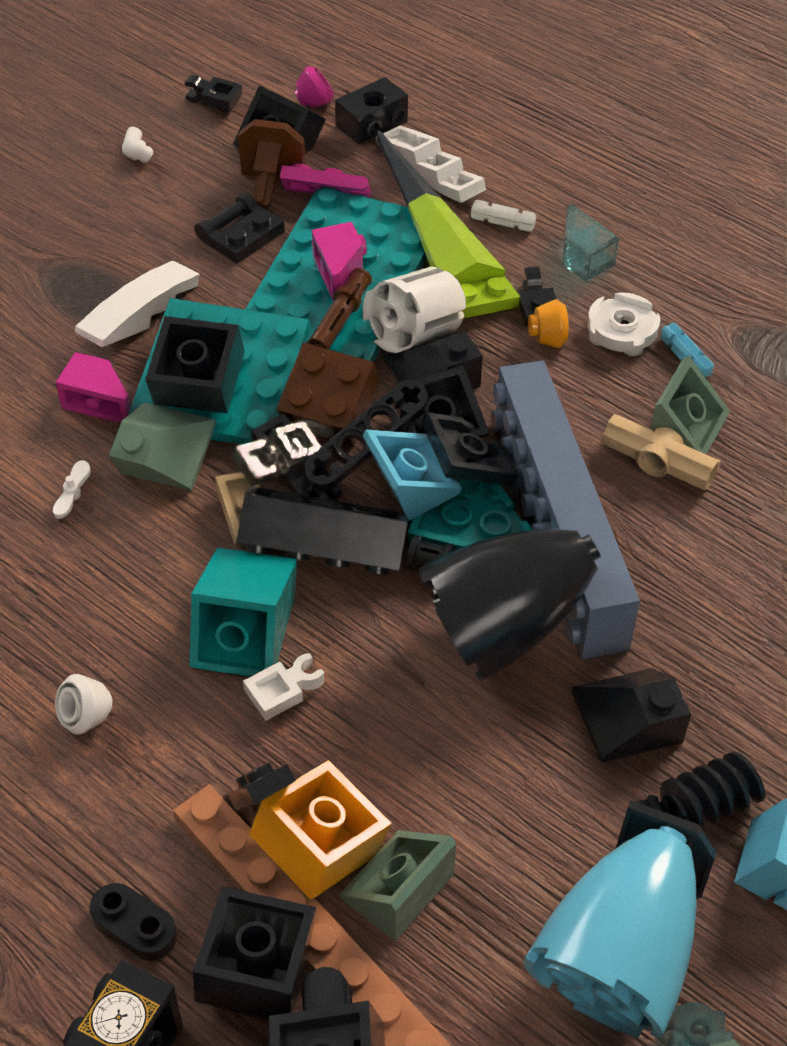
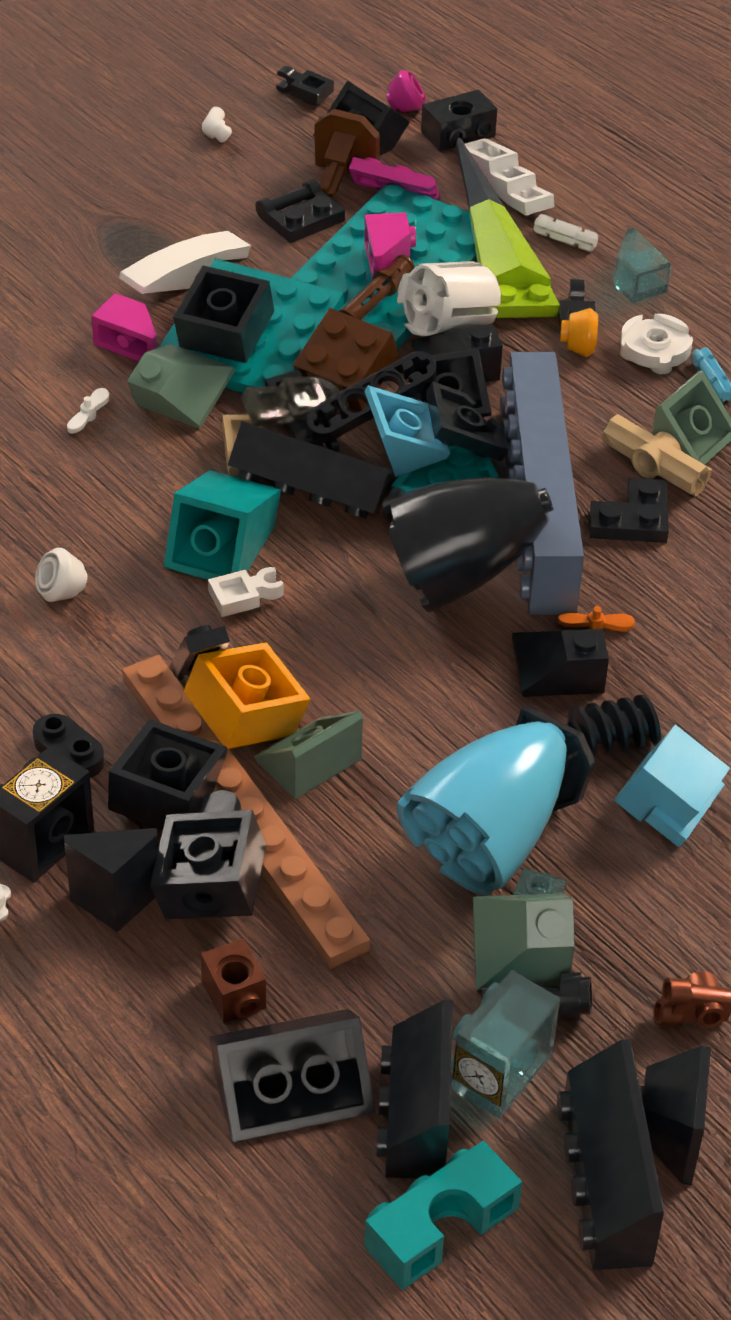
camera: 10 degrees right, 5 degrees down
(654, 656) = (597, 620): none -> orange piece
(663, 524) = (639, 519): none -> black plate

